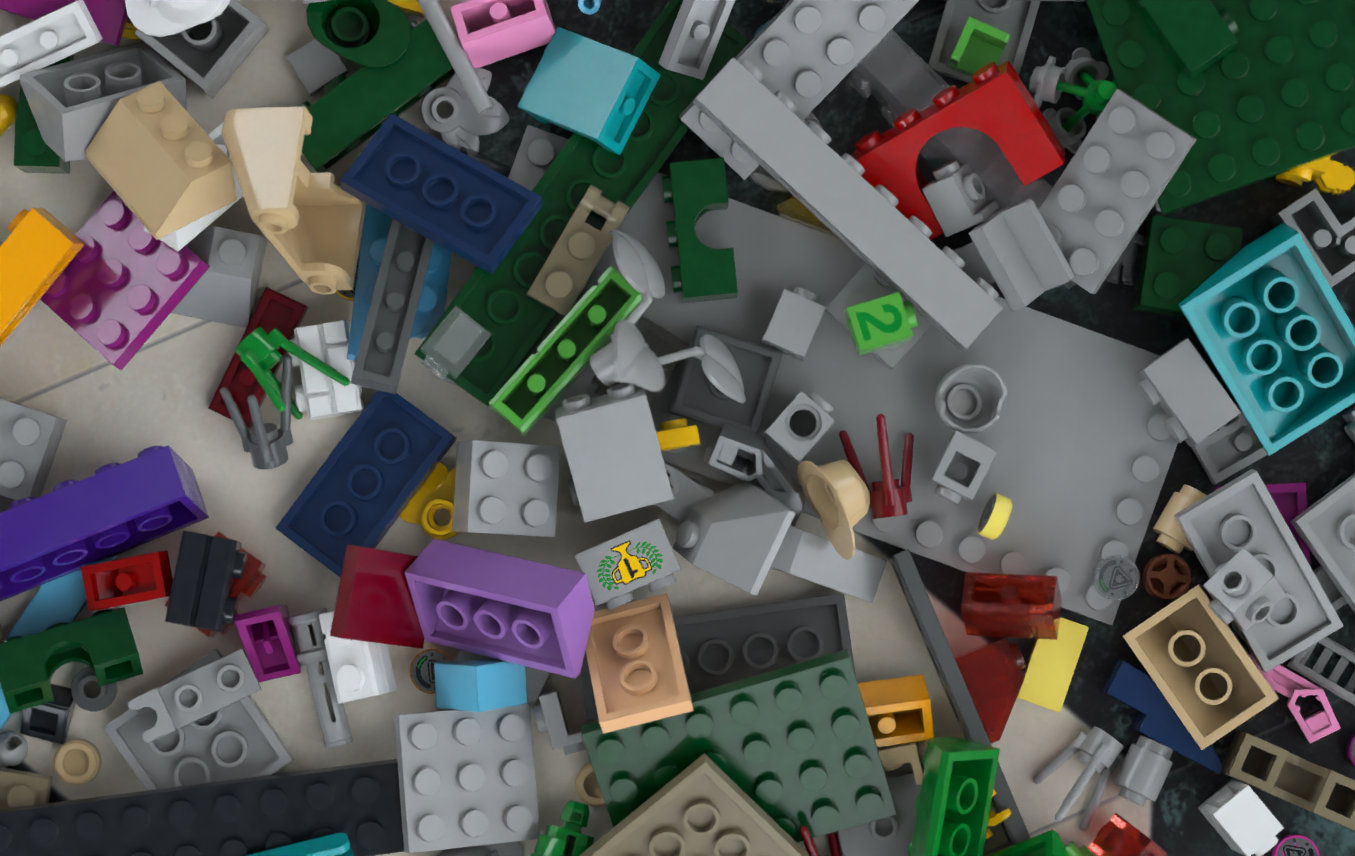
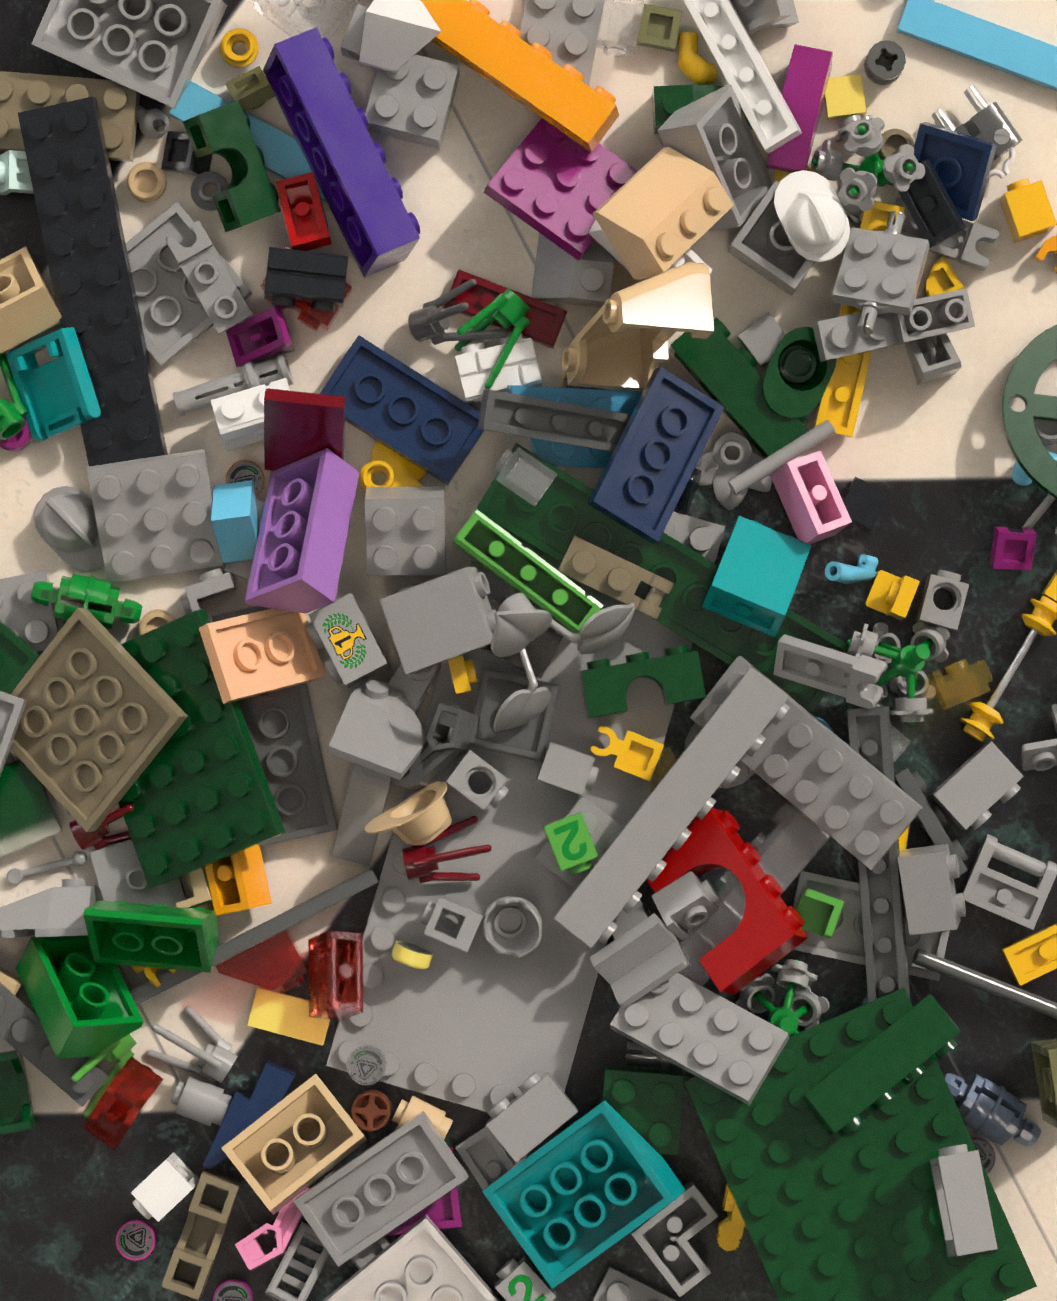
camera: 85 degrees right, 0 degrees up
(782, 247) = (634, 753): none -> yellow plate
(1243, 591) = (360, 1173): light grey brick -> none

